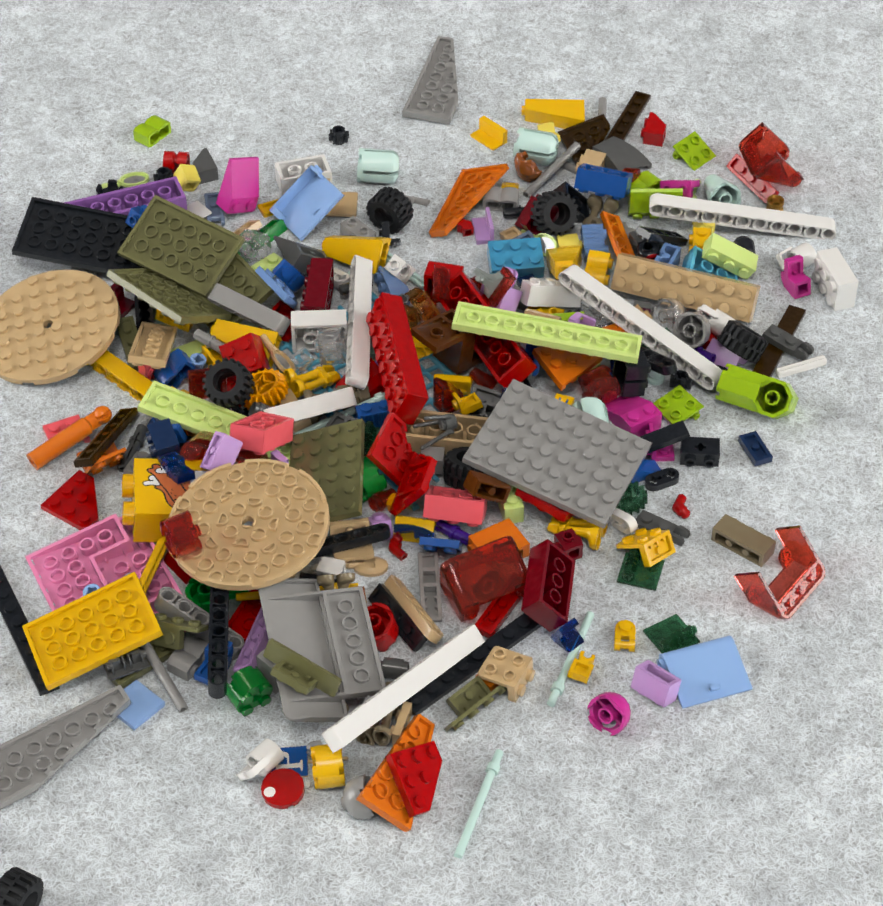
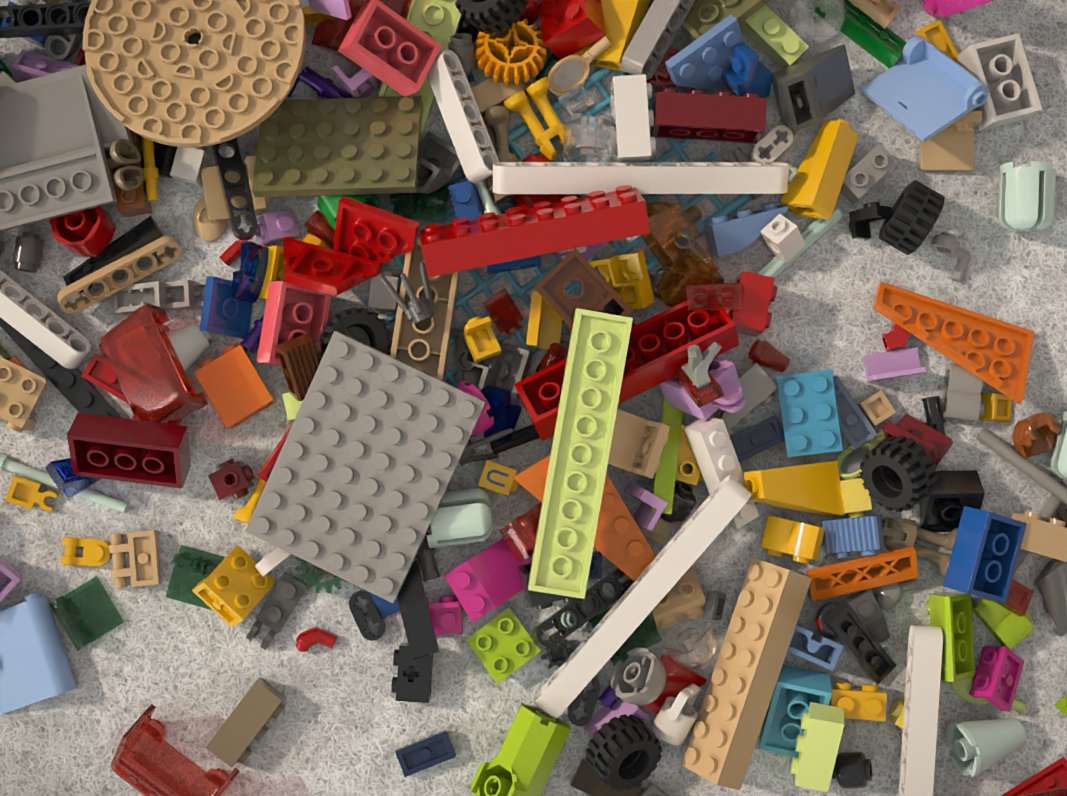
camera: 90 degrees right, 40 degrees up
(628, 600) = (143, 559): none -> tan plate

